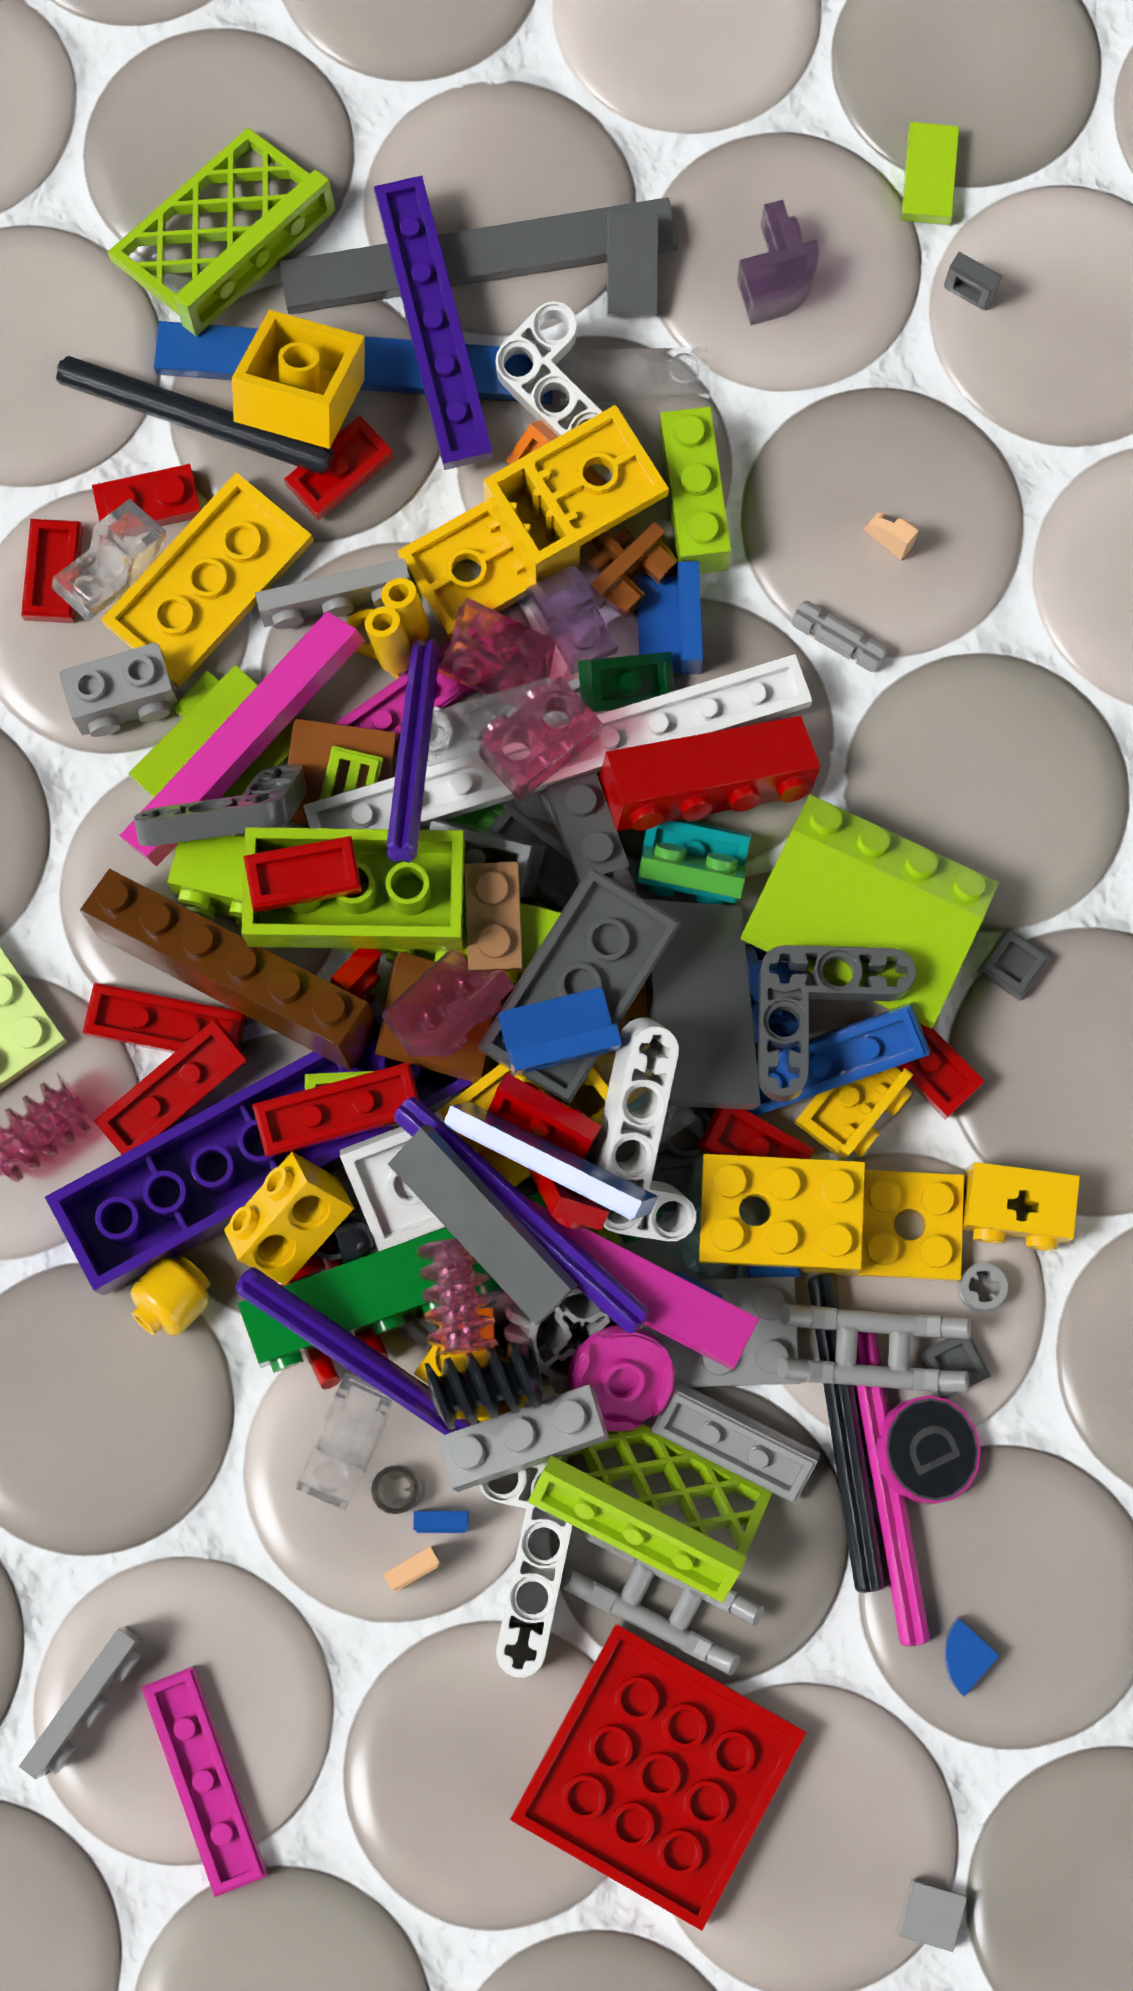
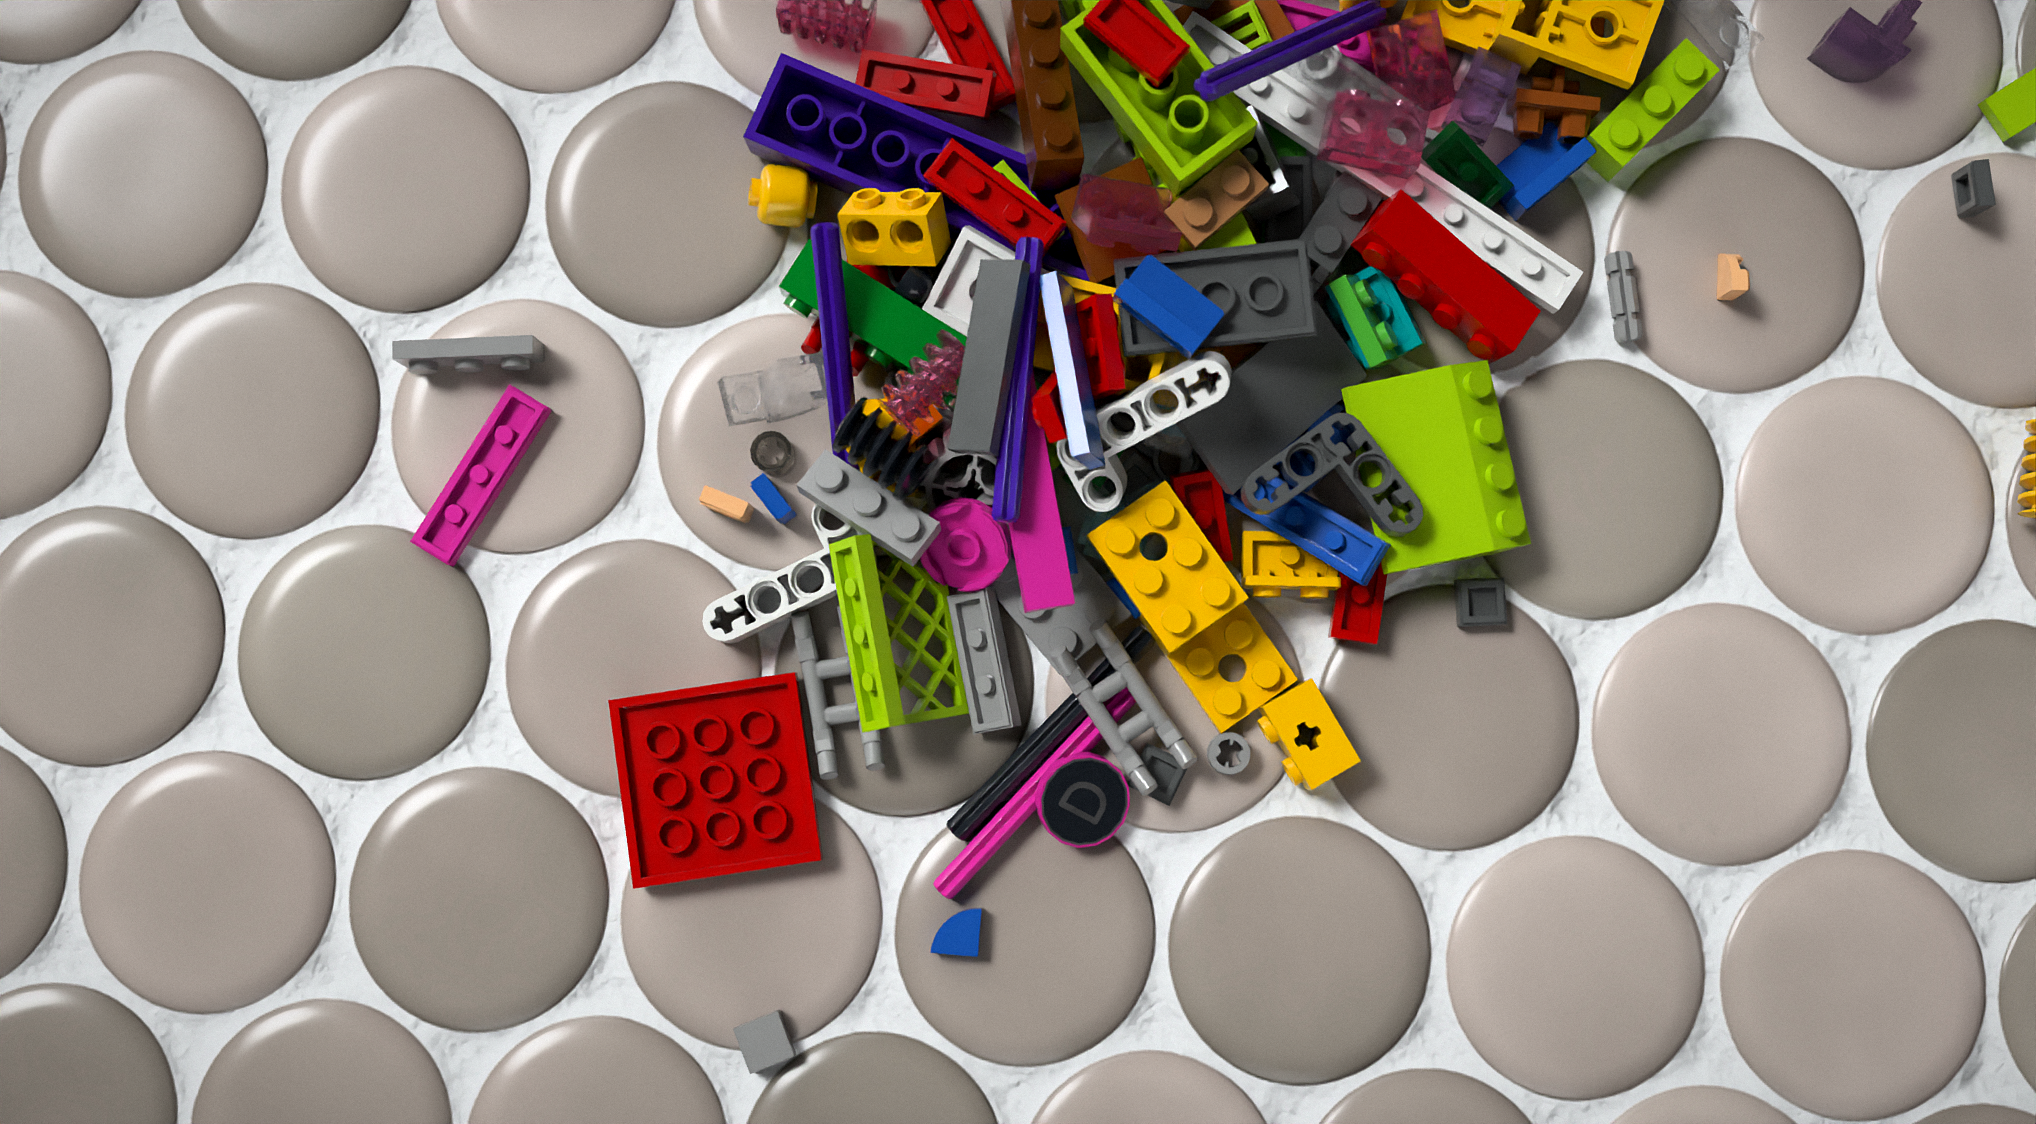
camera: 60 degrees right, 5 degrees up
(359, 974) = (1101, 145): red plate -> none

